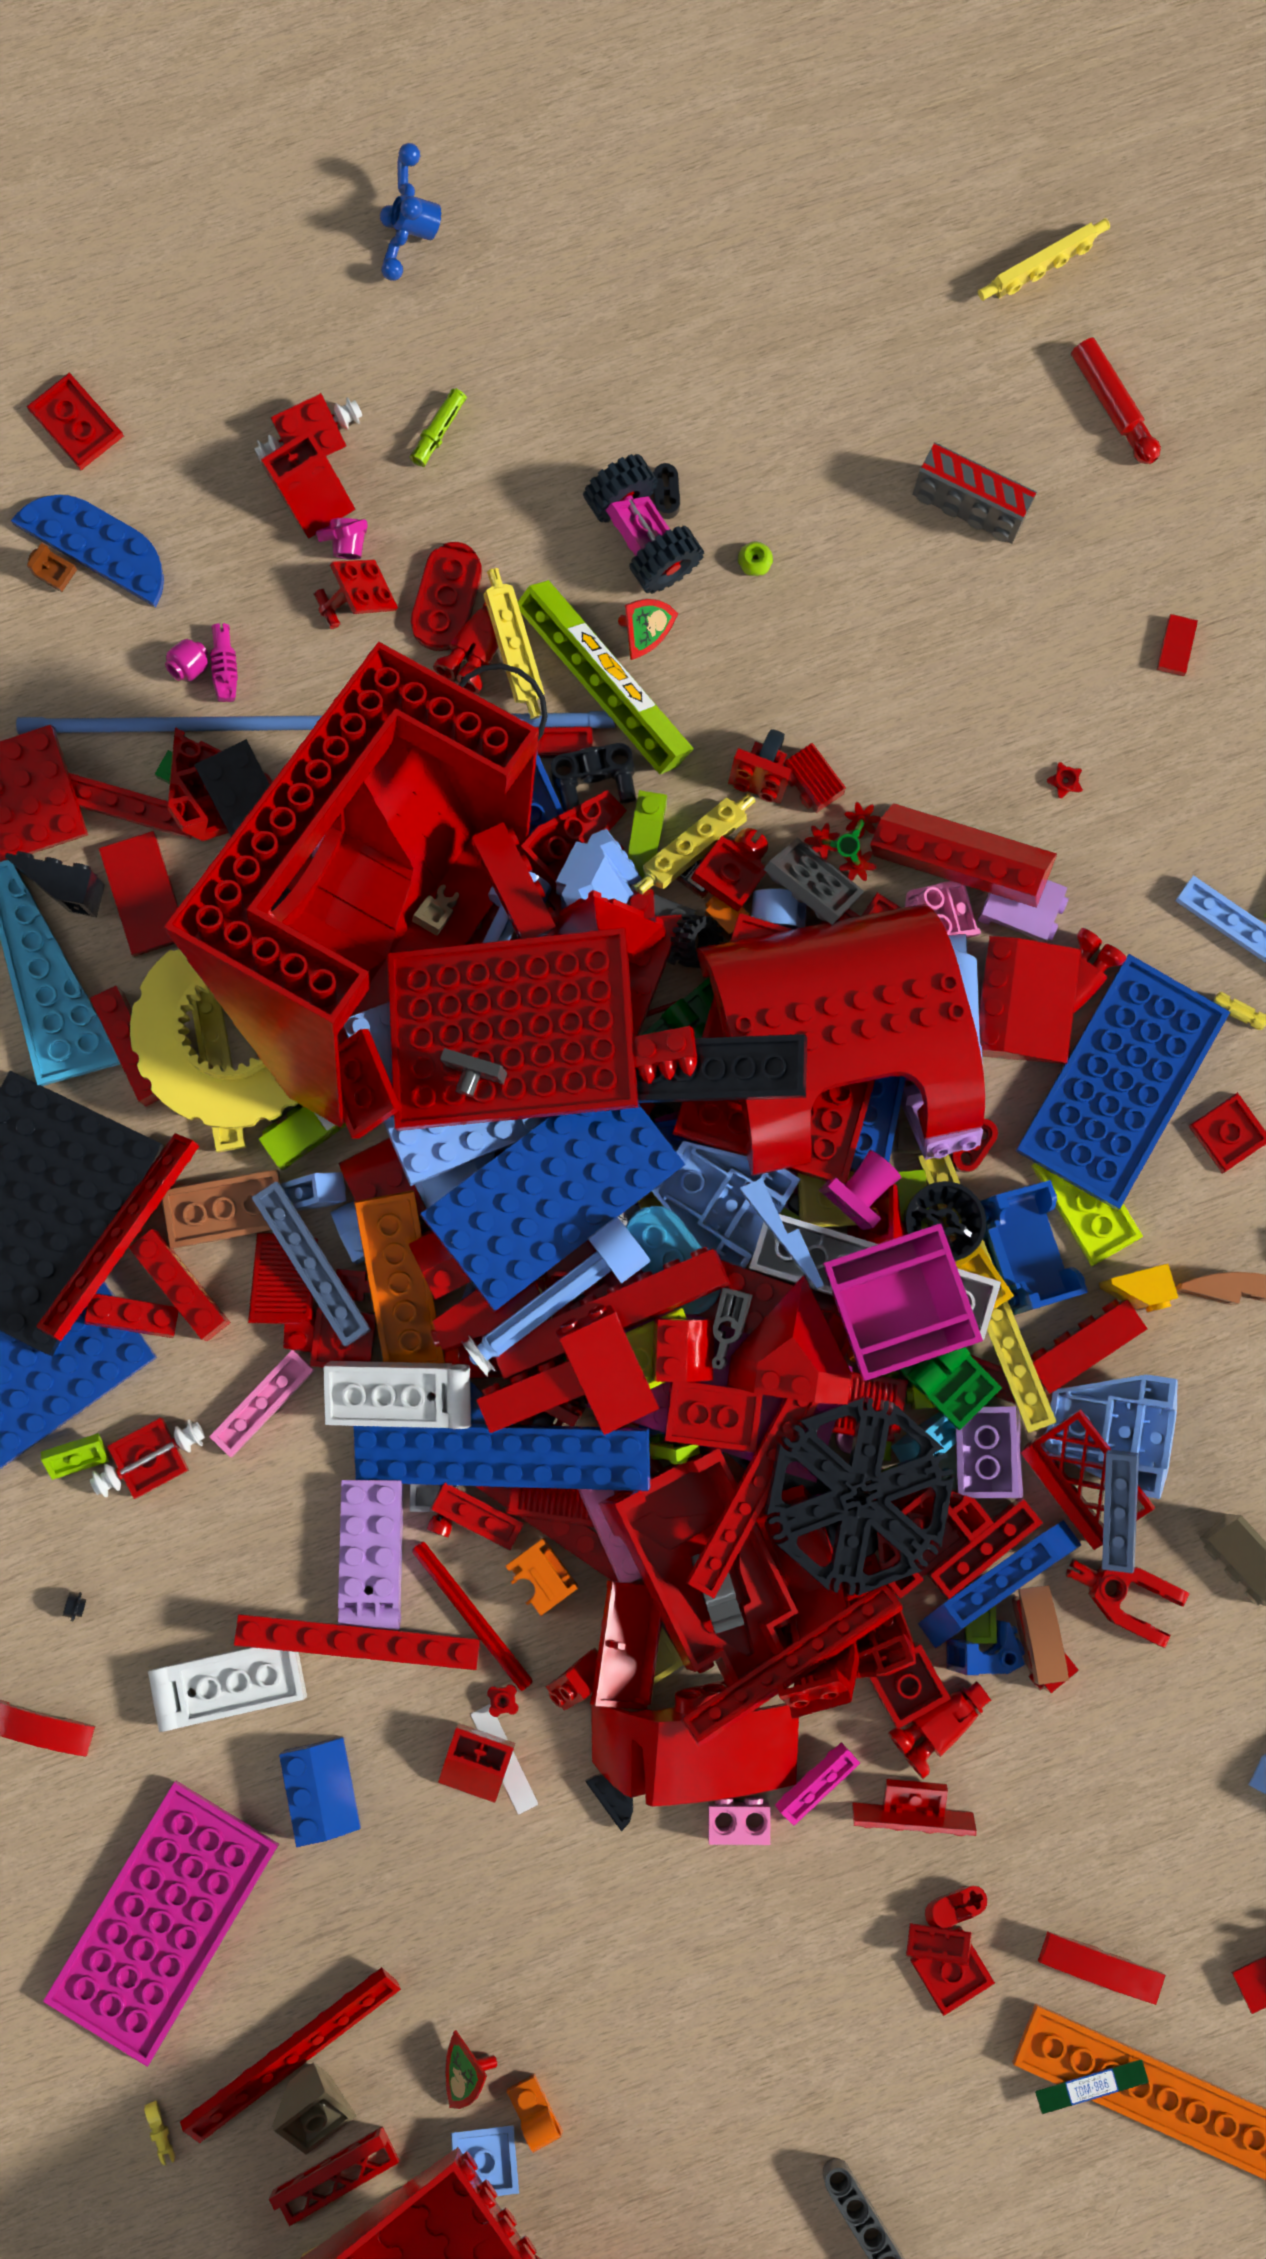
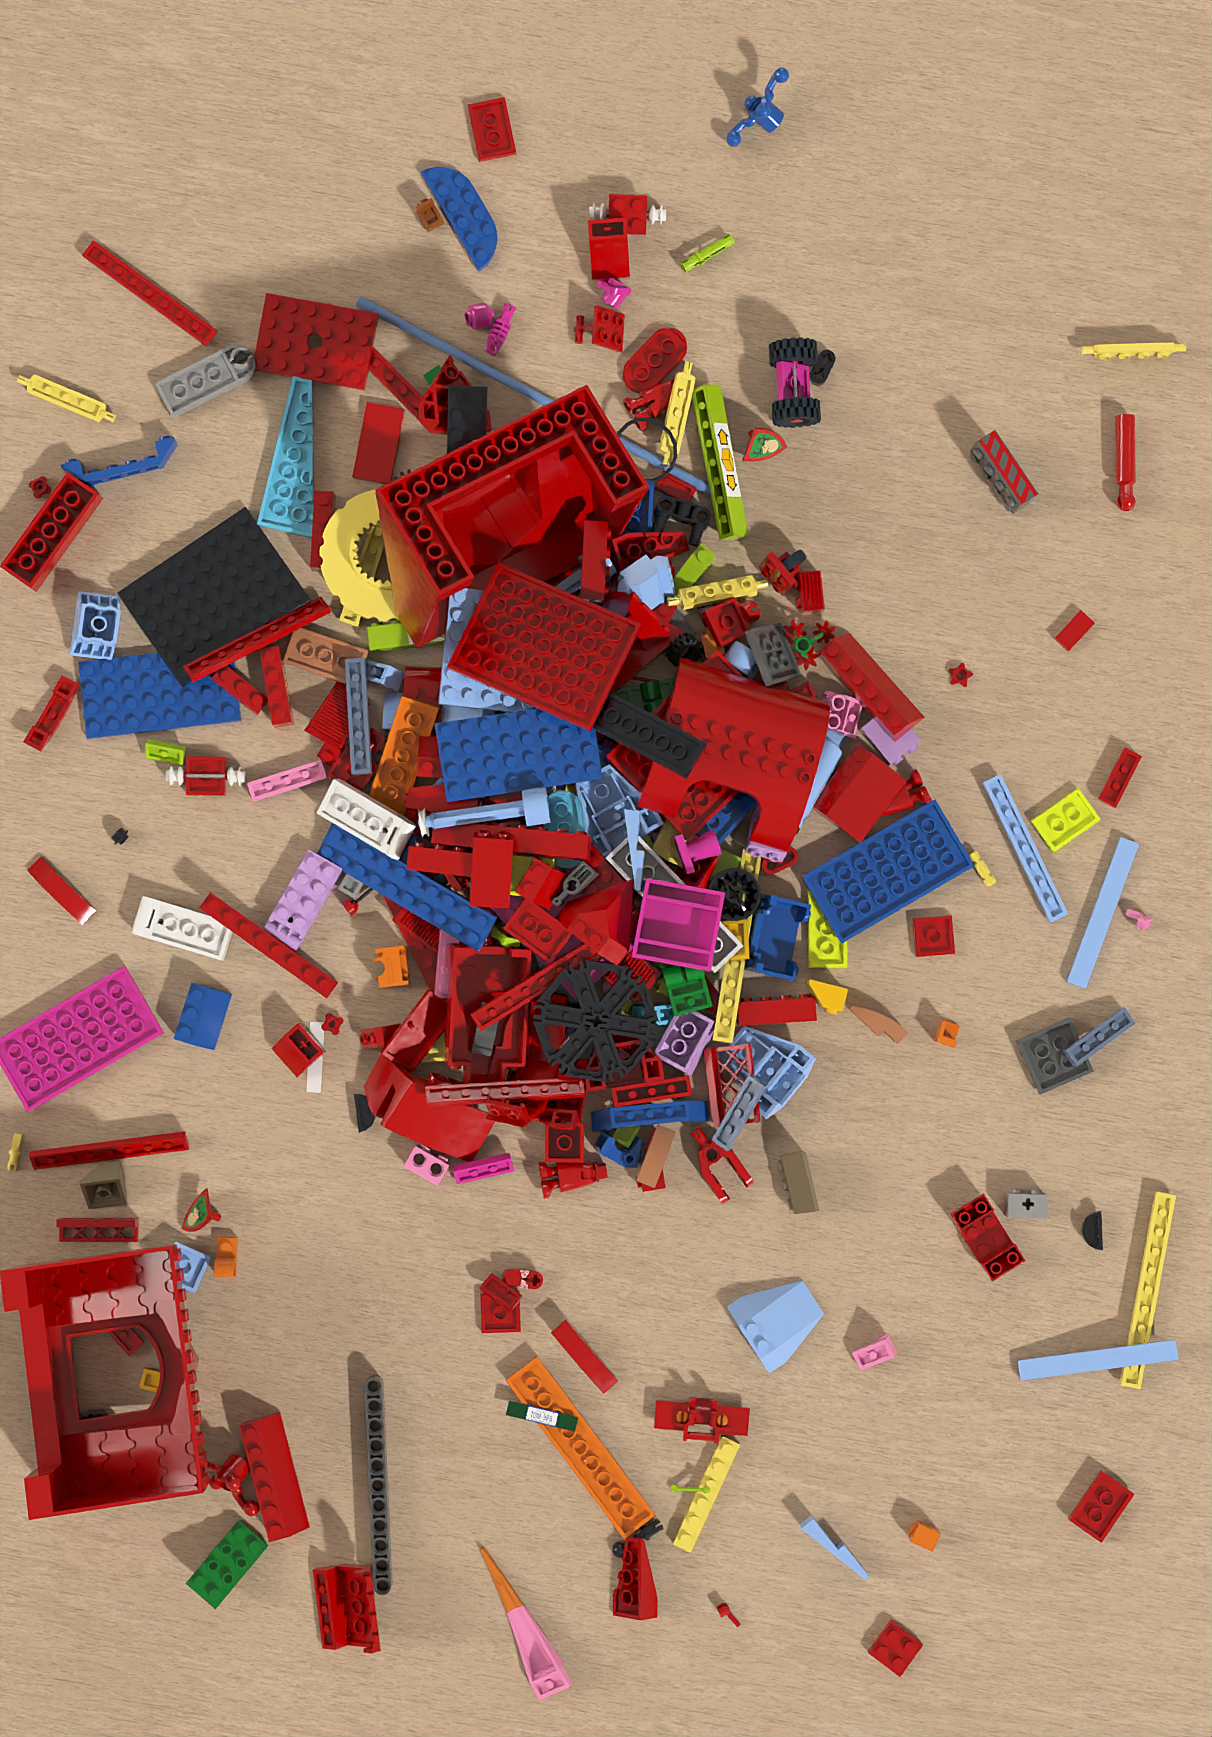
camera: 25 degrees right, 5 degrees up
(71, 887) = (338, 418): black slope -> none
(365, 1085) = (443, 631): red plate -> none
(435, 912) = (541, 551): dark tan plate -> none
(472, 1070) = (507, 658): dark grey tile -> none
(472, 1616) = (341, 968): red axle -> none
(477, 1516) = (374, 912): red plate -> none
(665, 1050) = (623, 707): red plate -> none
(755, 567) = (852, 445): lime plate -> none
(914, 1808) = (529, 1211): red bracket -> none

